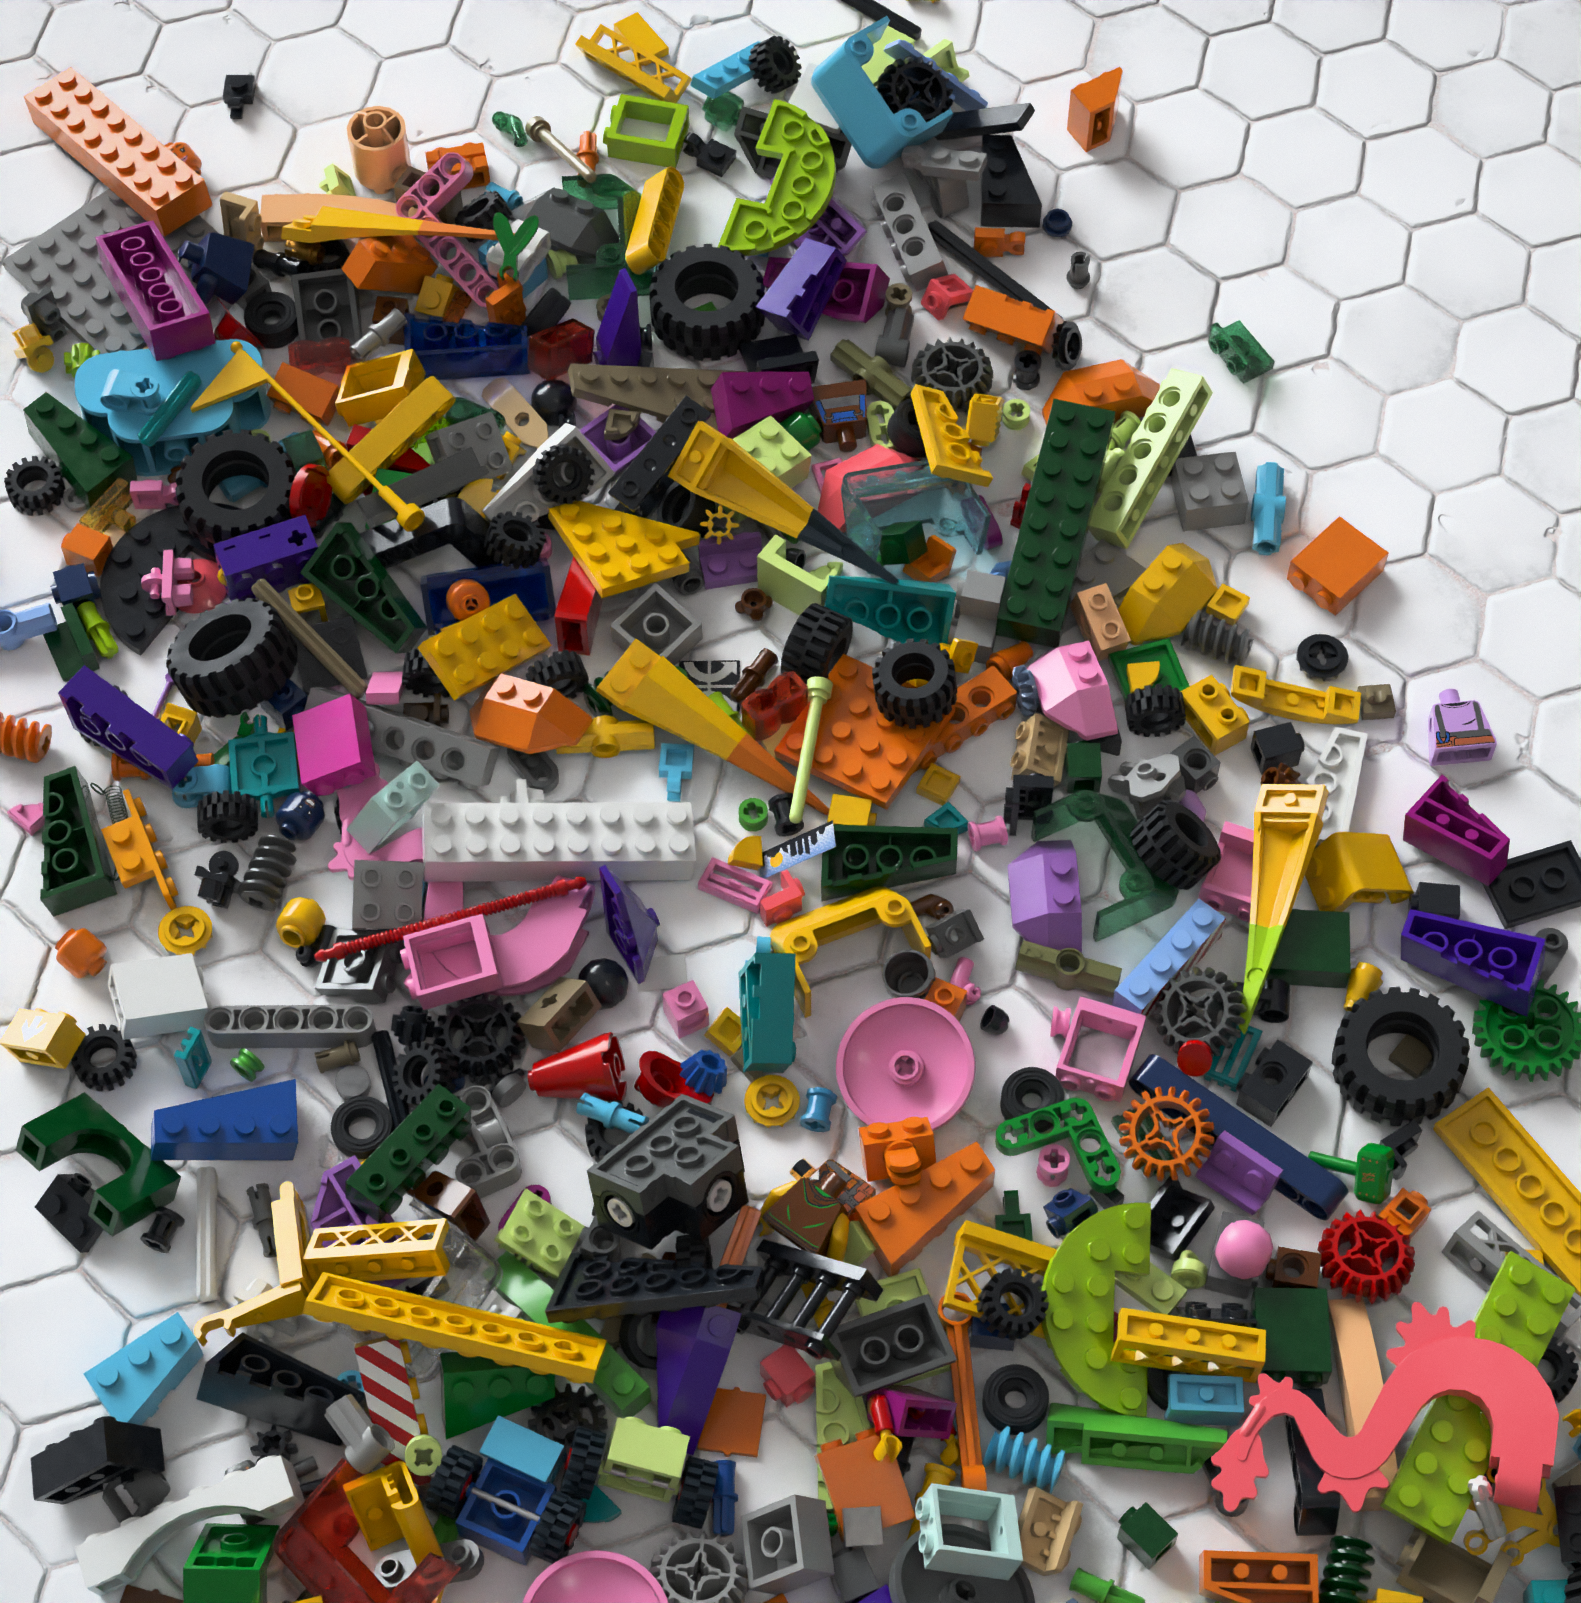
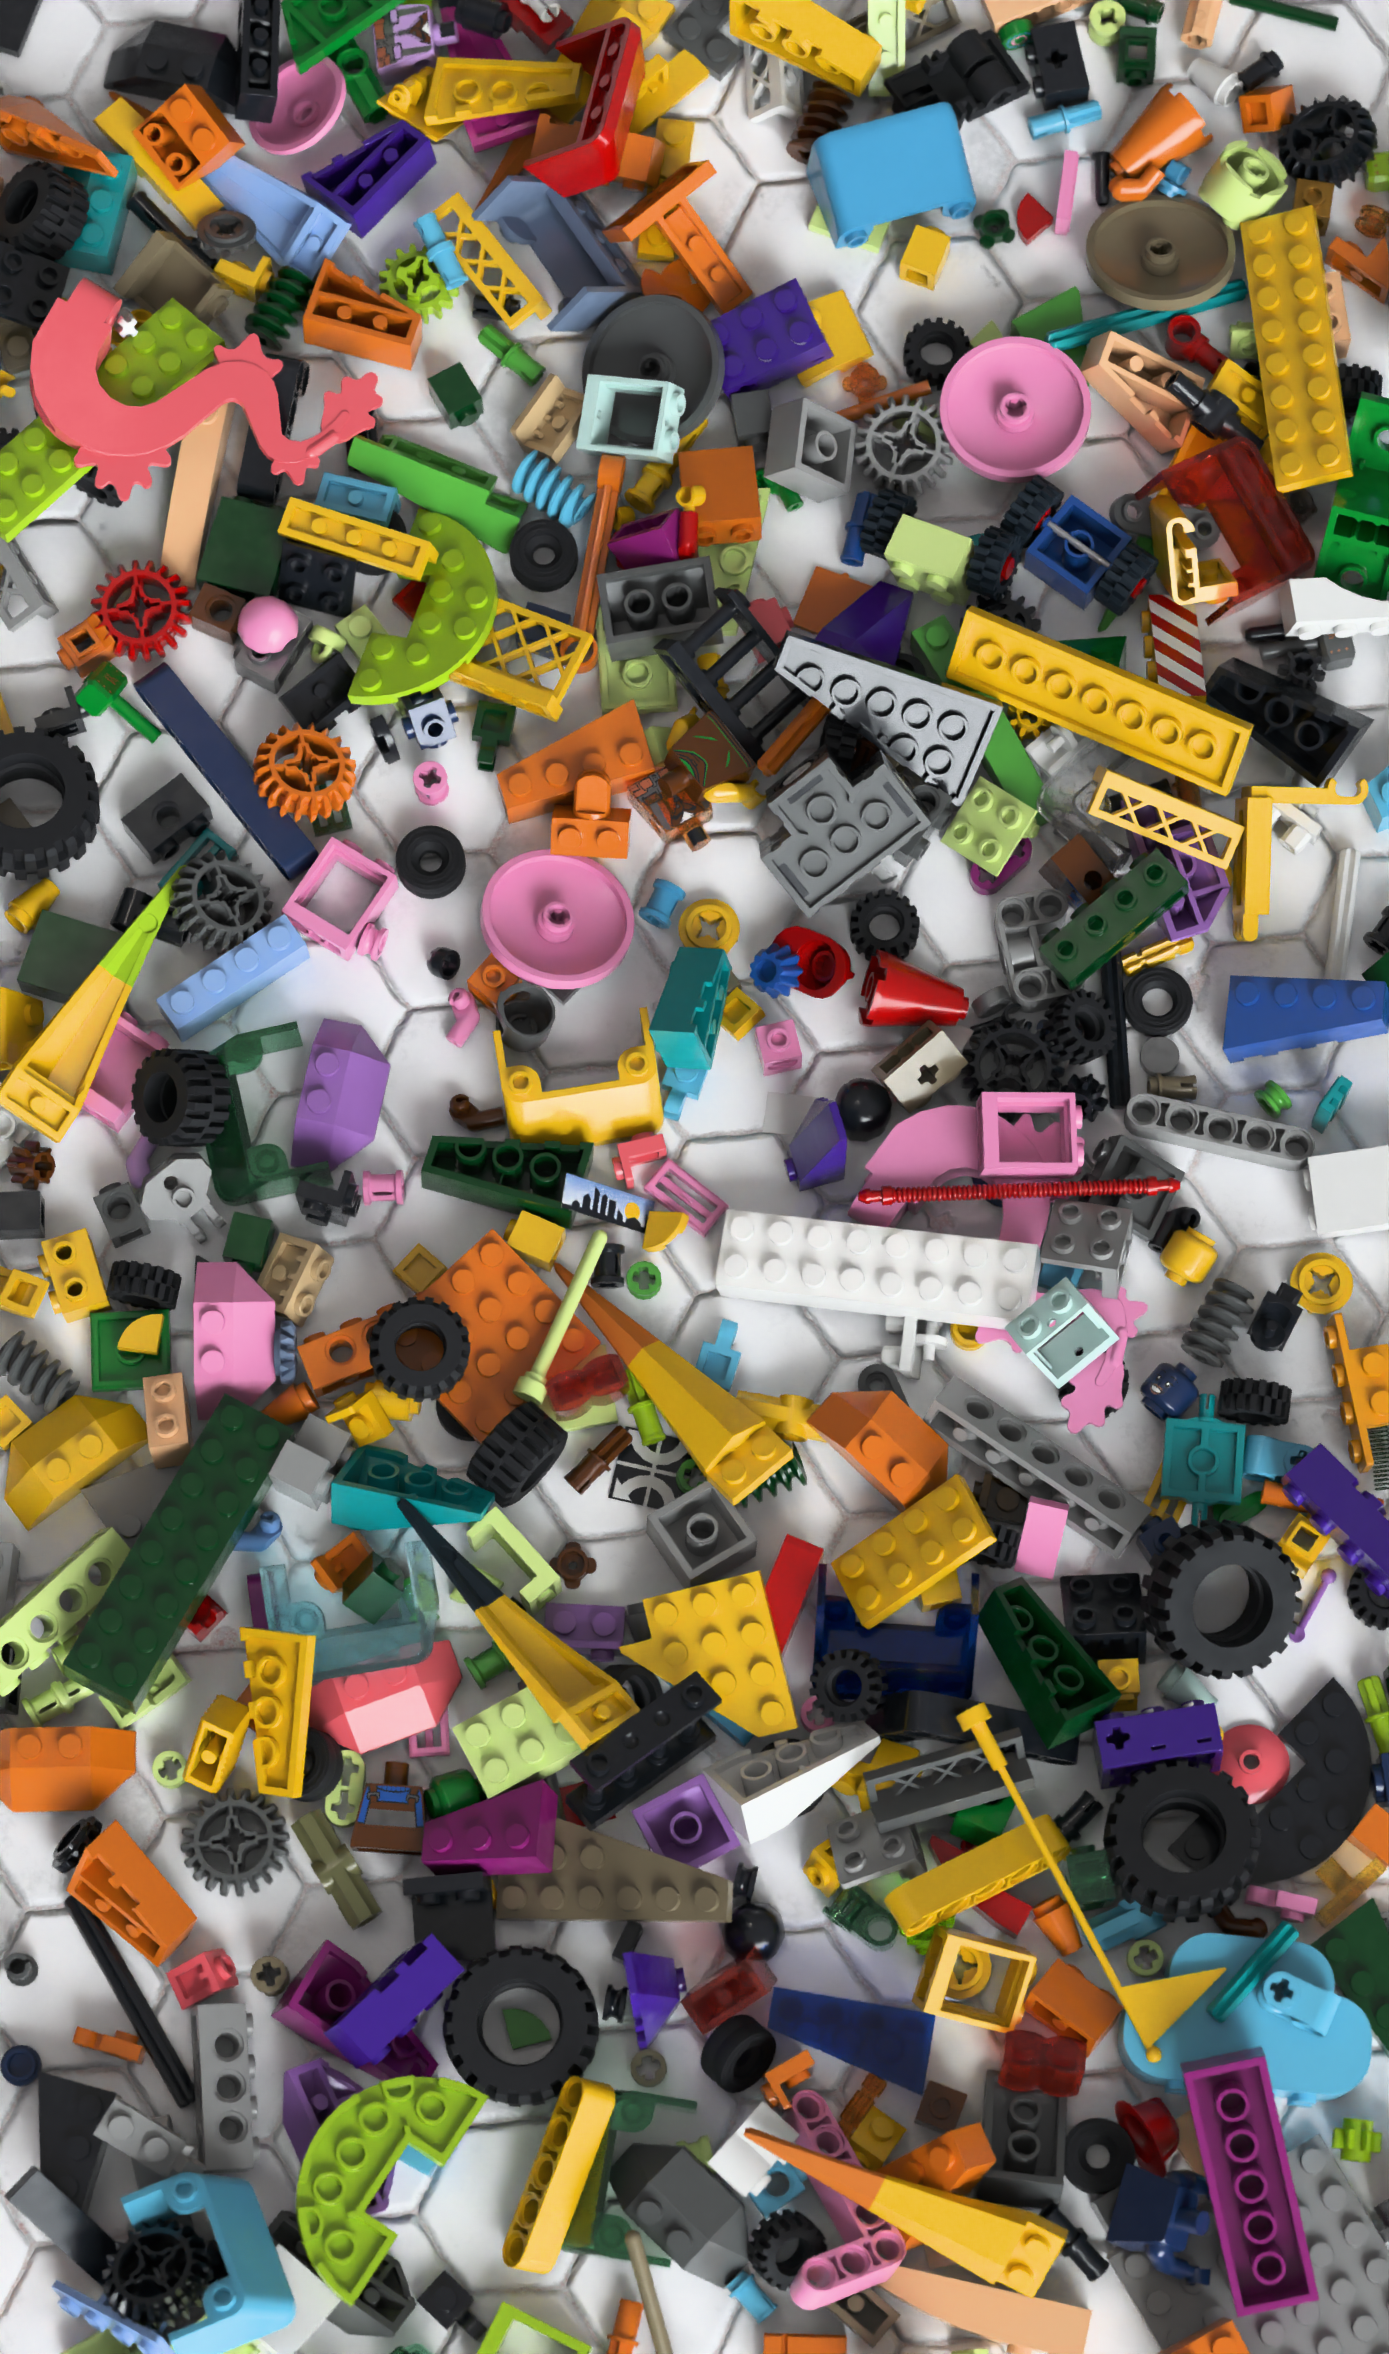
camera: 165 degrees left, 15 degrees up
(166, 583) = (1275, 1766): bright pink hips -> none
(241, 219) = (1116, 2319): tan bracket -> none
(263, 1219) = (1278, 922): dark grey pin -> none
(310, 493) = (1091, 1812): red tile -> none
(311, 639) = (1123, 1606): dark tan axle -> none
(334, 745) = (1117, 1444): dark pink brick -> none
(365, 1441) = (1211, 620): light grey piece -> none
(378, 335) = (964, 2056): light grey pin -> none
(423, 1444) = (1152, 603): yellowish green wheel -> none
(461, 592) = (921, 1629): orange head -> none
(512, 405) = (810, 1934): tan piece -> none
(513, 243) = (762, 2121): green piece -> none
(524, 1450) = (1051, 592): medium azure hinge -> none
(560, 671) = (834, 1497): black tyre -> none
(581, 479) = (770, 1755): black tyre -> none
(610, 1114) = (886, 927): medium azure pin -> none
(620, 423) = (680, 1839): dark tan tile -> none
(719, 534) = (594, 1645): yellow gear -> none
(862, 1526) = (733, 448): flat silver tile -> none
(895, 342) = (295, 1911): dark grey piece -> none
(947, 817) = (424, 1221): teal tile -> none
(965, 927) = (460, 1067): dark grey brick -> none
(1026, 1291) = (509, 604): black tyre -> none
(1027, 367) = (136, 1814): black bush -> none
(1048, 964) = (364, 1011): olive piece -> none
(1074, 1130) = (398, 796): green beam -> none
(1195, 1058) = (245, 848): red tile -> none
(1239, 1173) = (239, 720): medium lavender bracket -> none

